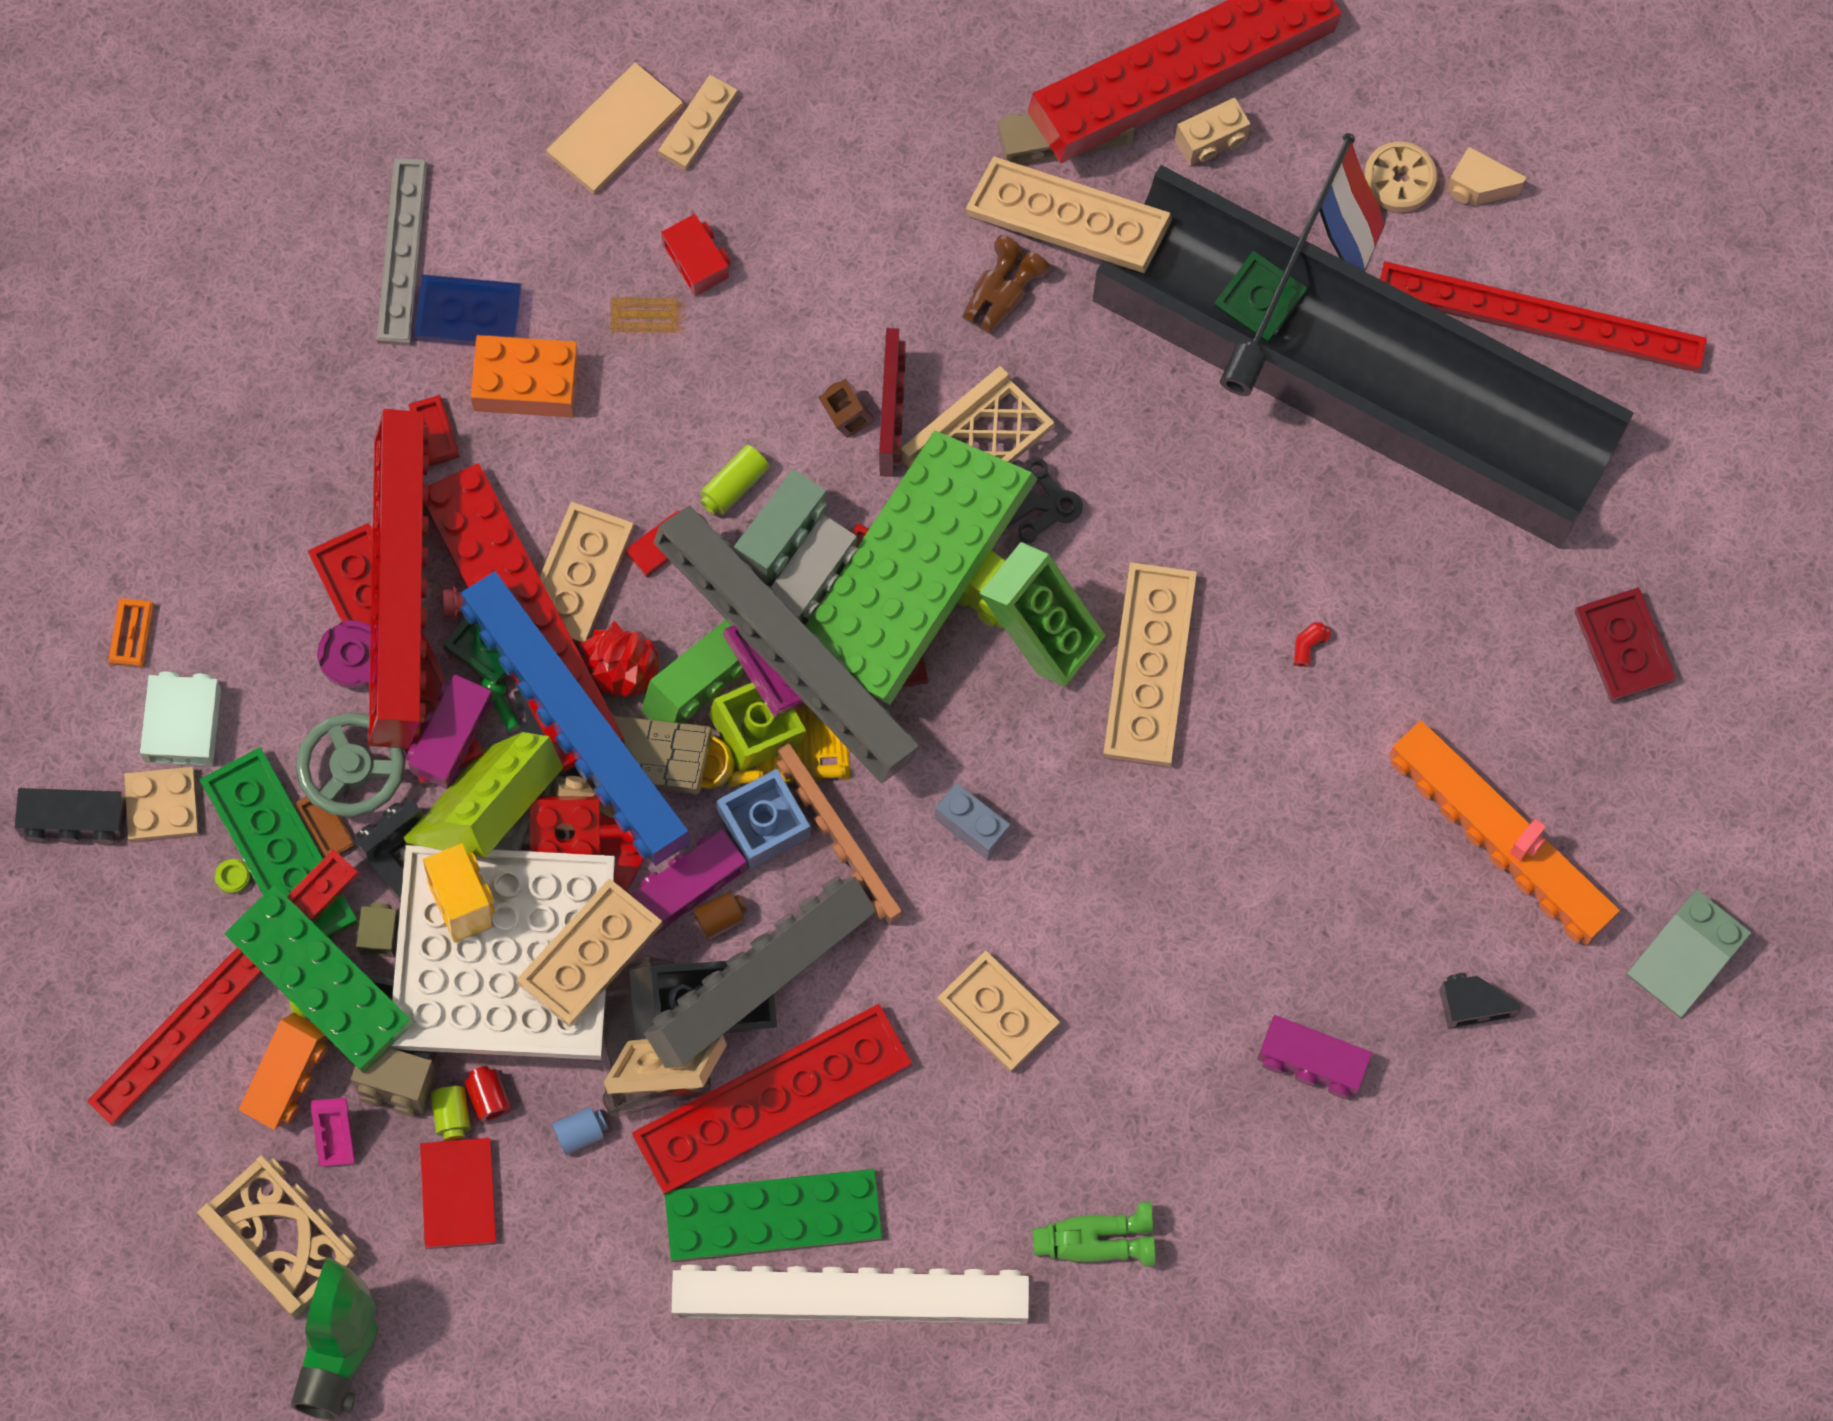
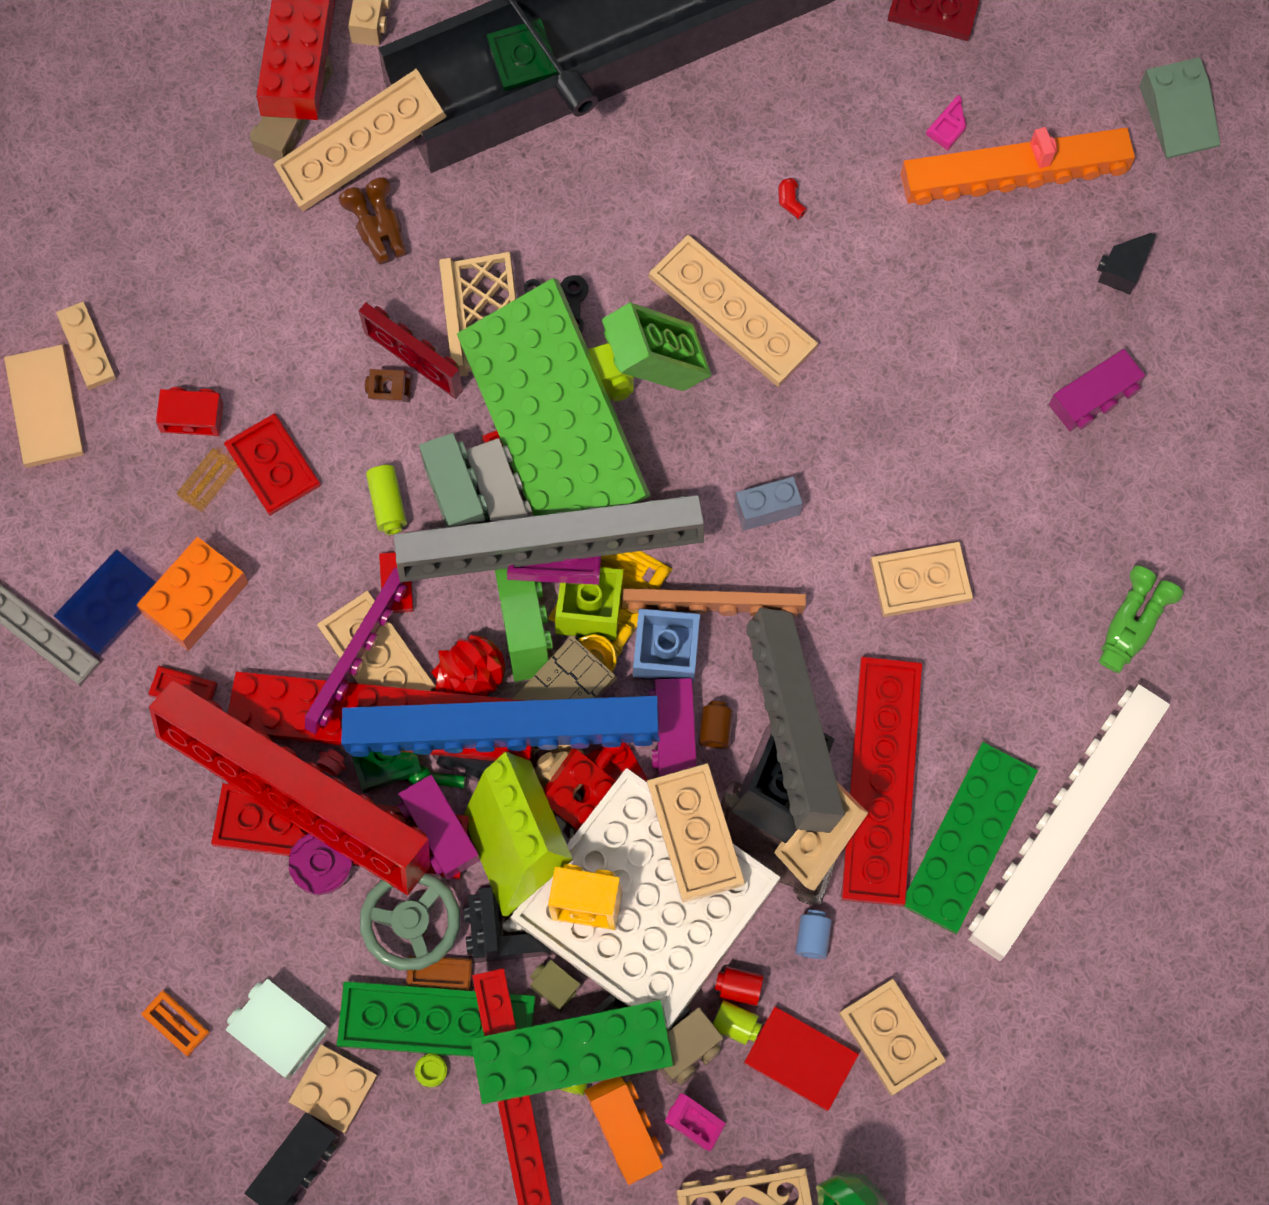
camera: 55 degrees left, 0 degrees up
(531, 1261) = (892, 1037): none -> tan plate
(550, 550) = (351, 661): none -> magenta plate
(699, 359) = (272, 464): none -> red tile
(1503, 742) = (948, 125): none -> dark pink tile

